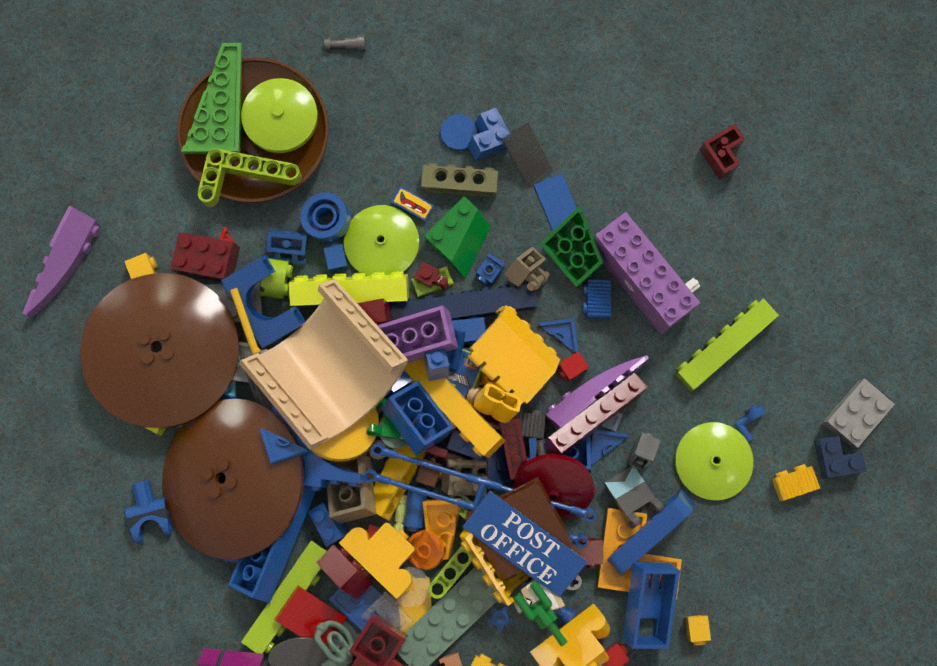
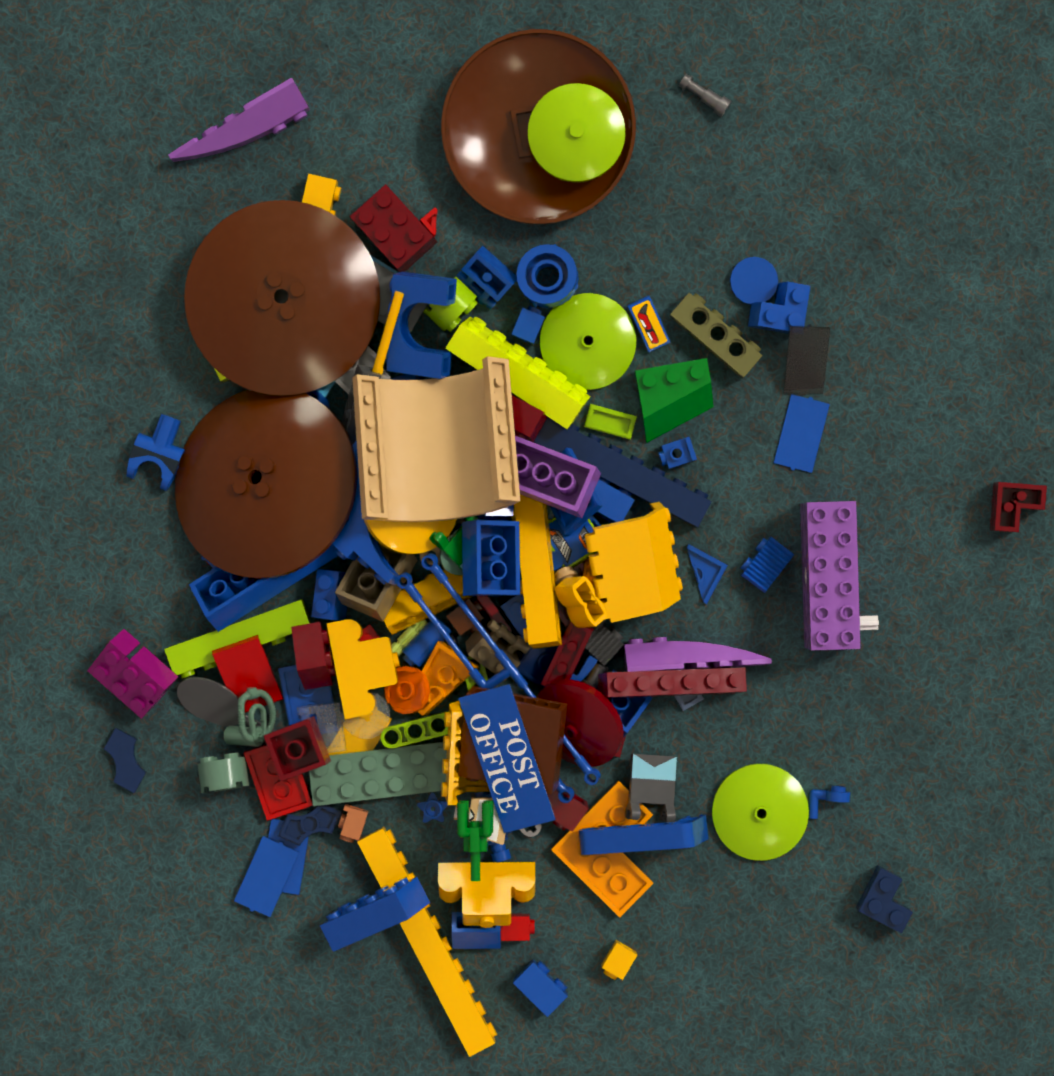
camera: 40 degrees right, 10 degrees up
(219, 111) = (513, 86): bright green wing -> none
(242, 169) = (498, 167): lime beam -> none
(279, 448) = (333, 491): blue tile -> none
(428, 276) = (610, 413): dark red plate -> none
(436, 364) = (548, 520): blue brick -> none
(527, 268) = (716, 478): dark tan brick -> none
(572, 367) = (687, 615): red brick -> none
(574, 248) = (778, 496): green wedge -> none
(604, 442) = (663, 713): blue tile -> none
(643, 451) = (694, 752): dark grey brick -> none
(651, 603) = (590, 902): blue piece -> none
(726, 345) = (862, 706): lime brick -> none
(795, 483) = (824, 892): yellow brick -> none
(858, 413) = (940, 871): light grey brick -> none

